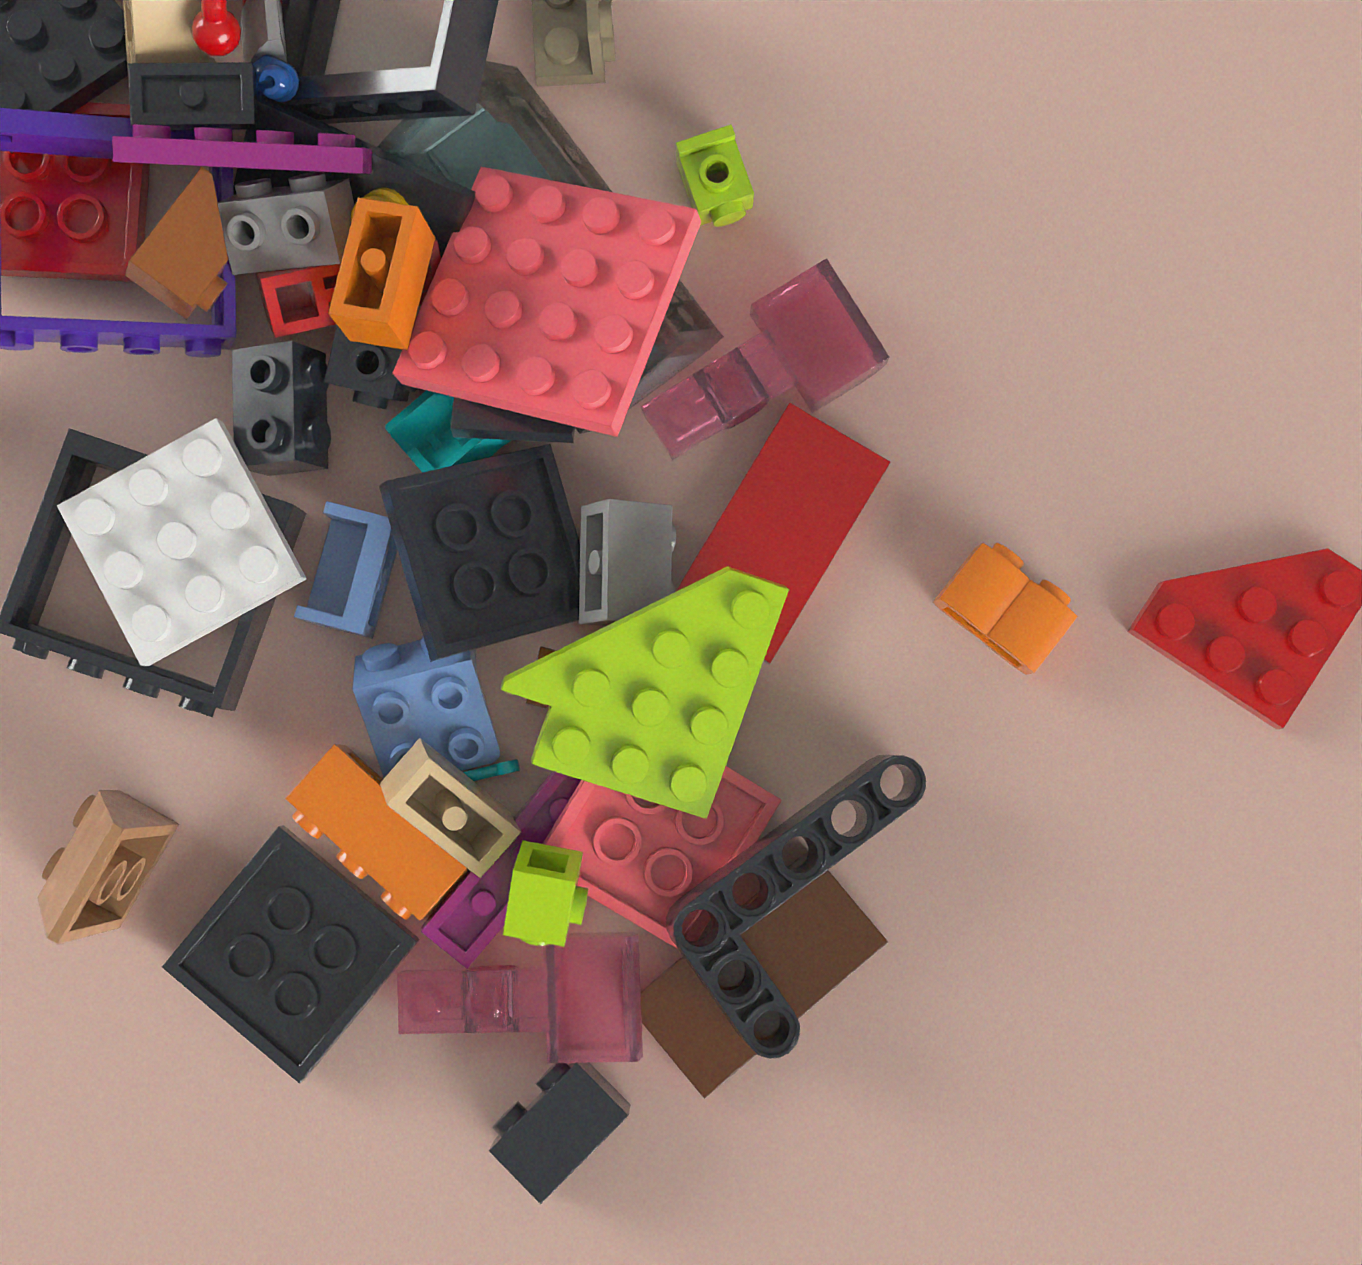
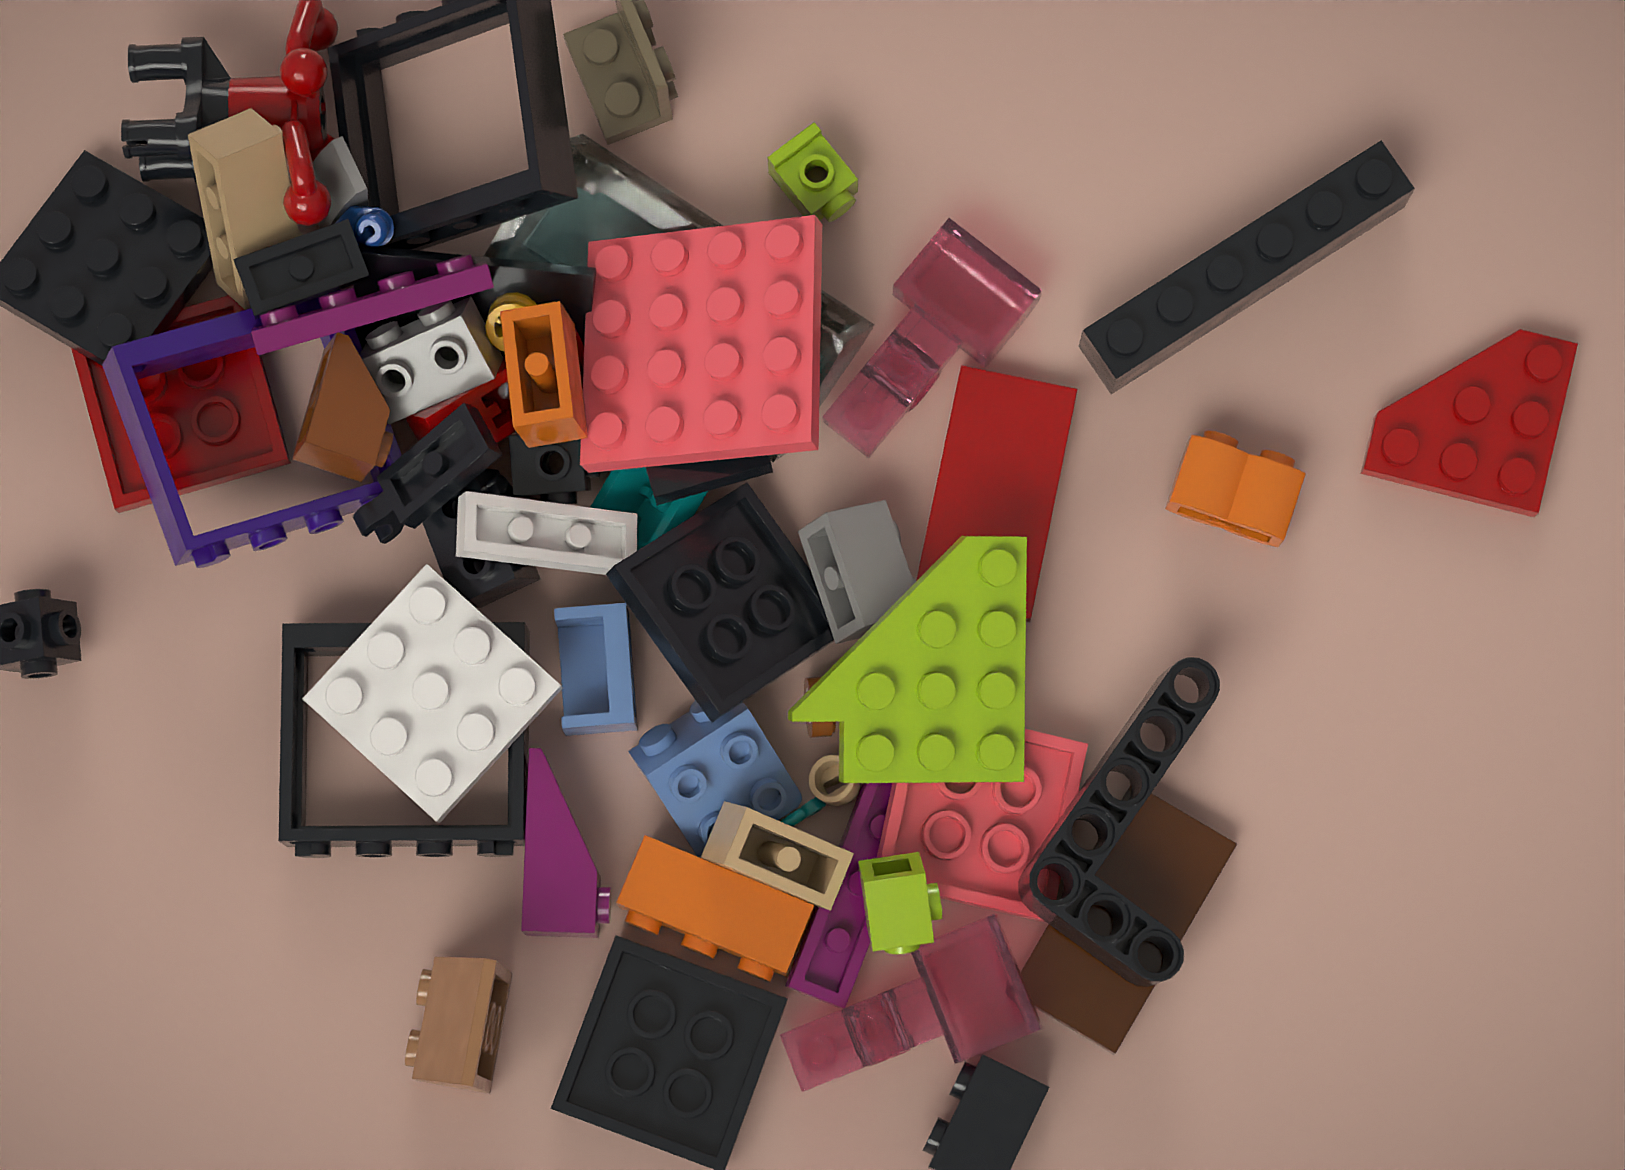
camera: 20 degrees left, 5 degrees down
(246, 333) = (429, 474): none -> black plate
(250, 743) = (559, 874): none -> magenta slope
(333, 426) = (543, 533): none -> white plate
(524, 743) = (825, 775): none -> tan hinge
(1092, 400) = (1245, 267): none -> black brick

